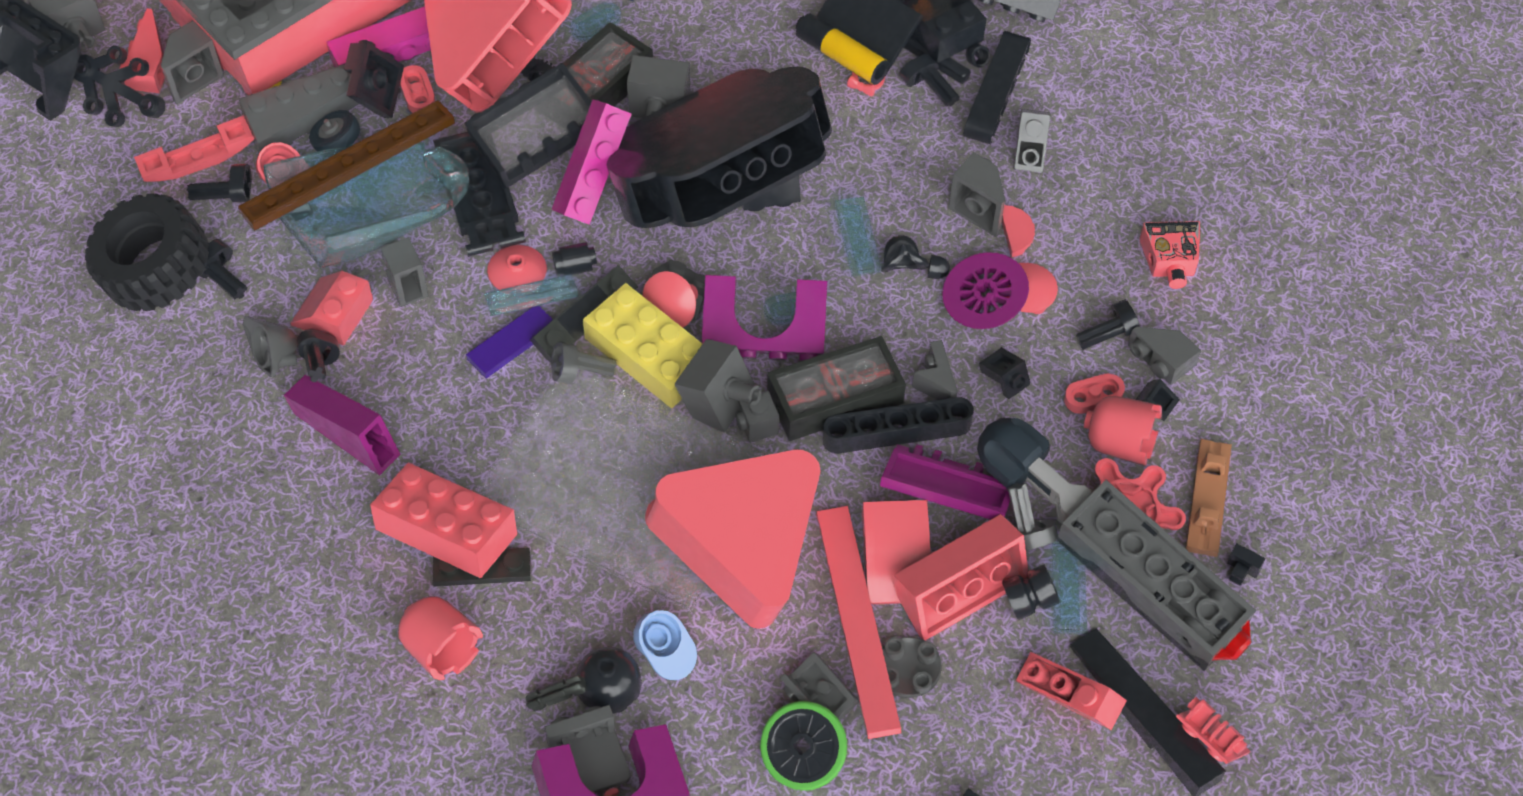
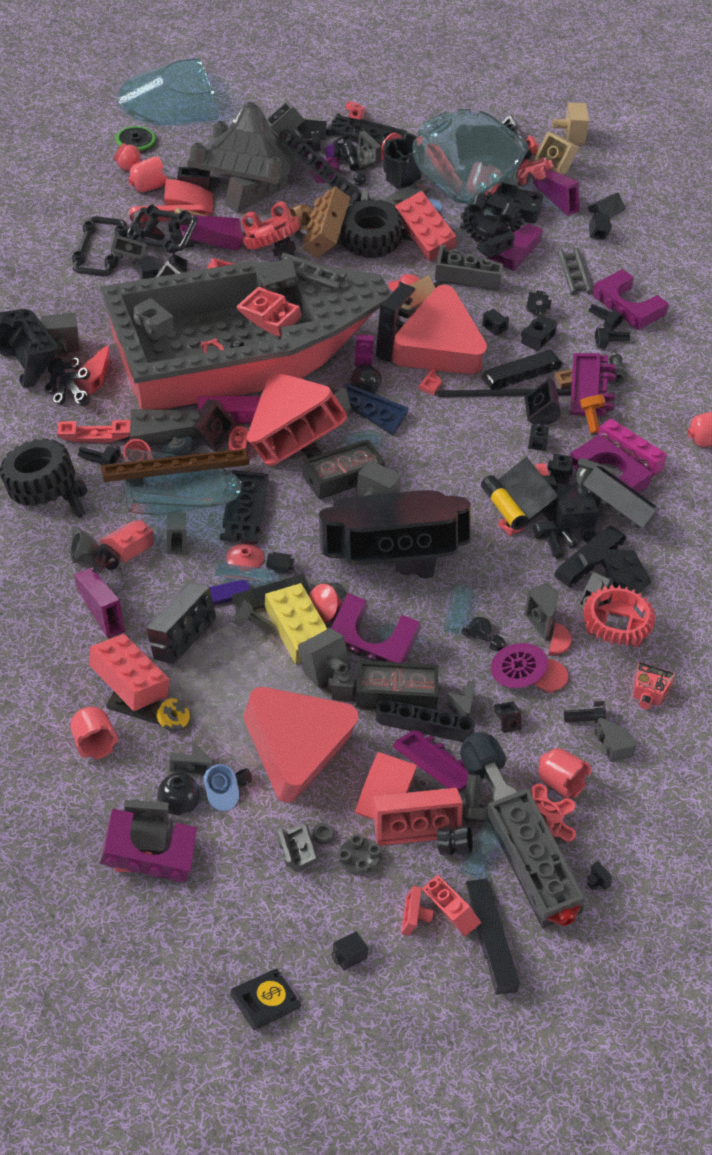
camera: 20 degrees right, 10 degrees down
(189, 62) = (114, 382): dark grey slope -> none
(485, 413) = (181, 623): none -> black piece
(528, 565) = (180, 711): none -> yellow piece
(531, 124) = (292, 479): window -> none
(556, 692) = (142, 788): pearl dark grey axle -> none
(588, 164) = (308, 515): dark pink brick -> none
(611, 620) = (198, 762): none -> dark grey slope
(688, 616) = (242, 776): none -> black hinge
(820, 730) = (276, 885): black wheel -> none
(837, 656) = (323, 833): none -> dark grey tile
(858, 623) = (341, 818): coral tile -> none
(1025, 722) = (414, 912): none -> coral tile
(1054, 90) = (620, 565): none -> black wing
(1080, 142) = (621, 604): none -> coral piece
(1092, 392) = (556, 742): coral plate -> none
(1159, 393) = (599, 766): black slope -> none
(1208, 498) = (598, 833): nougat hinge -> none
(1221, 743) = (524, 959): coral hinge -> none

